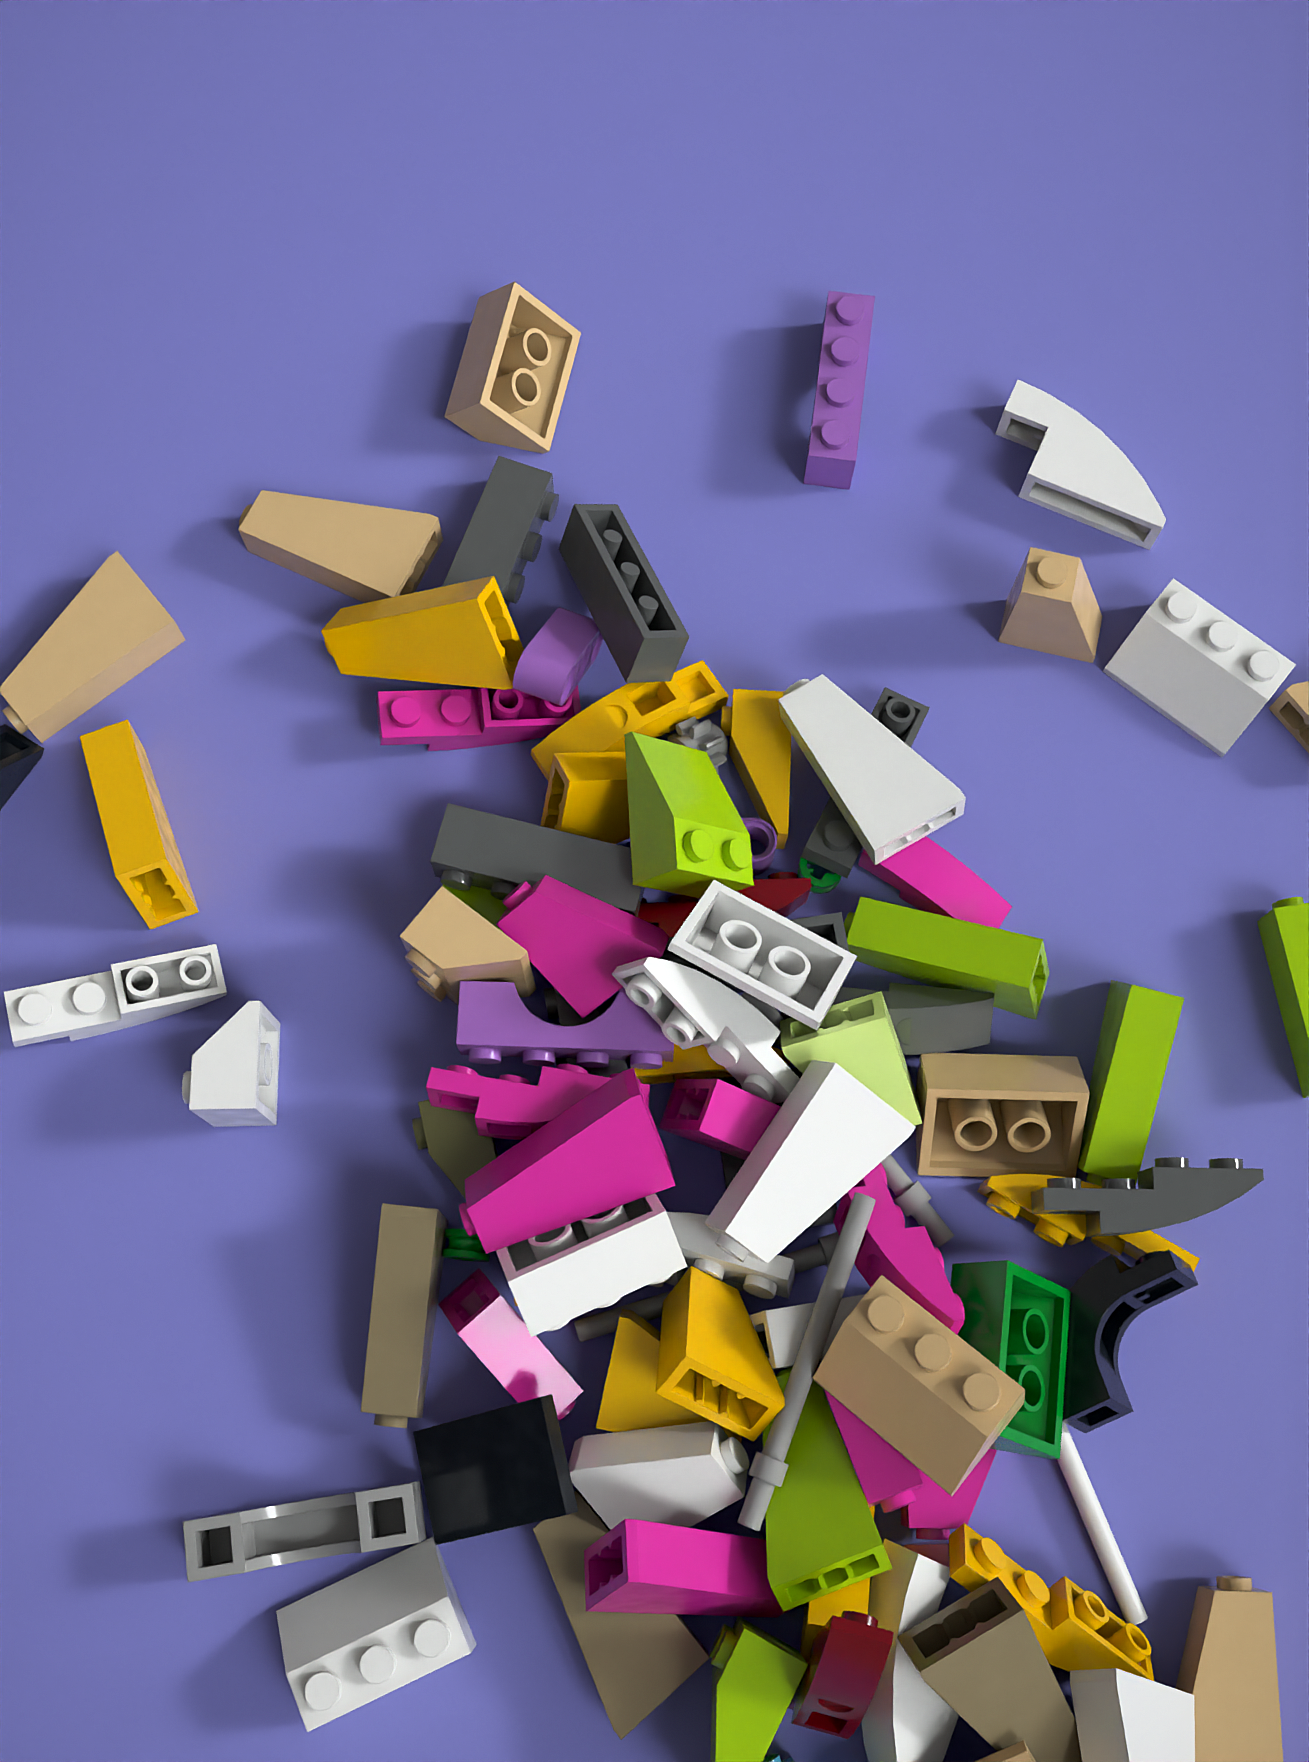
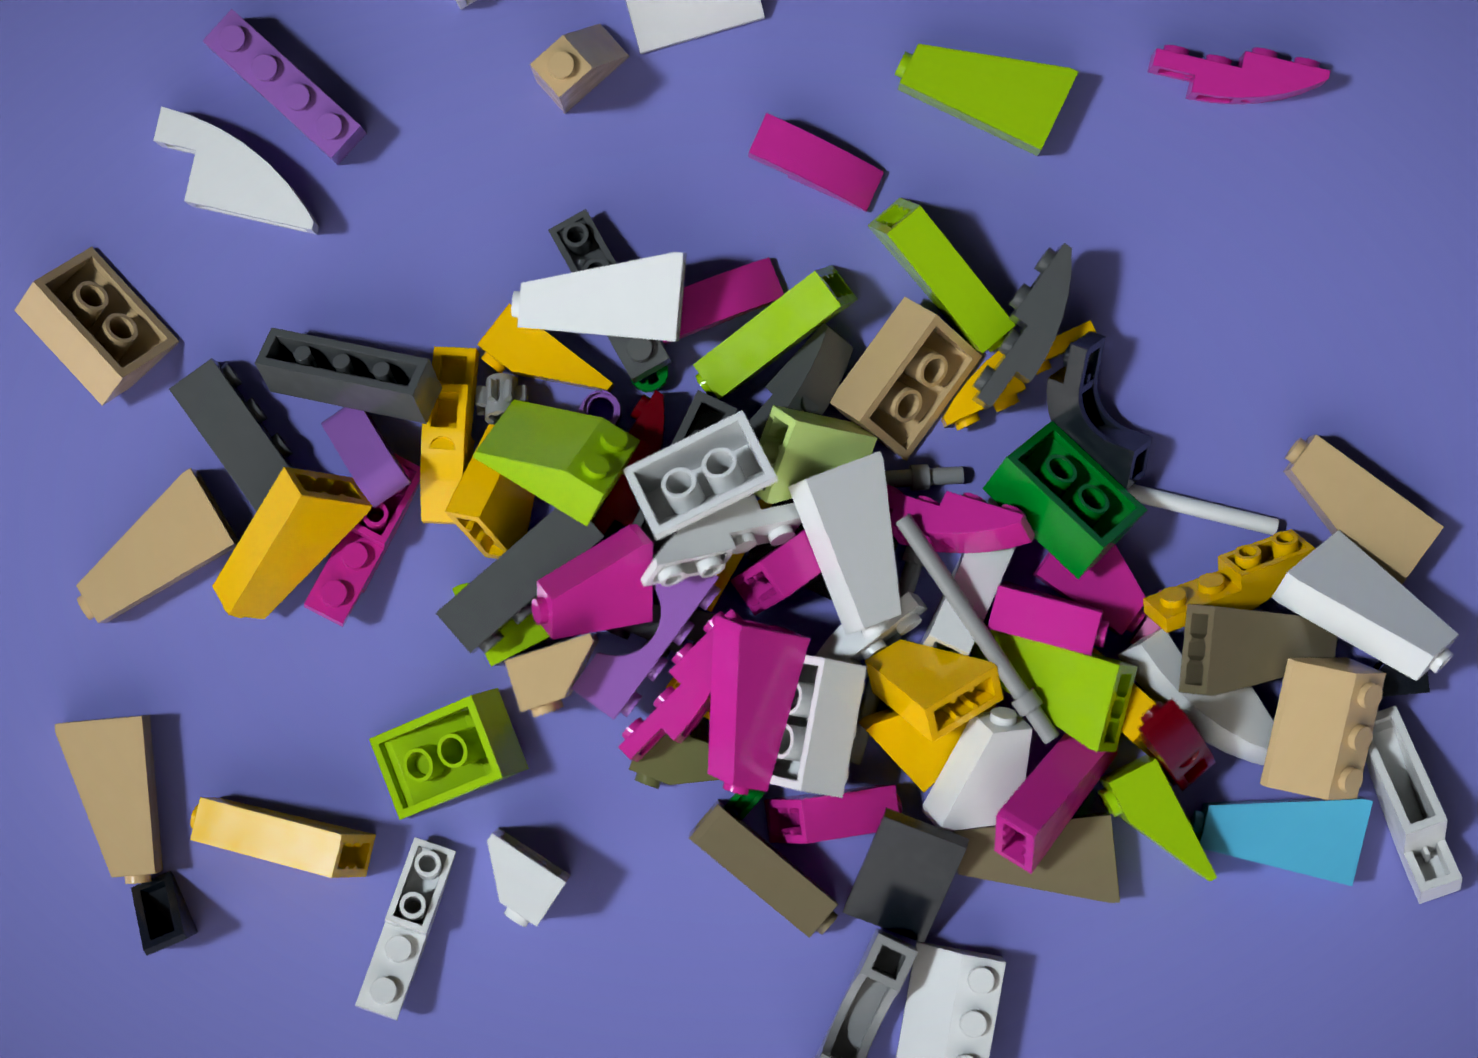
camera: 55 degrees left, 15 degrees up
(323, 924) = (448, 753): none -> lime slope
(727, 396) = (230, 175): none -> white slope
(918, 1385) = (1042, 575): tan slope -> none
(1133, 885) = (815, 162): none -> dark pink slope

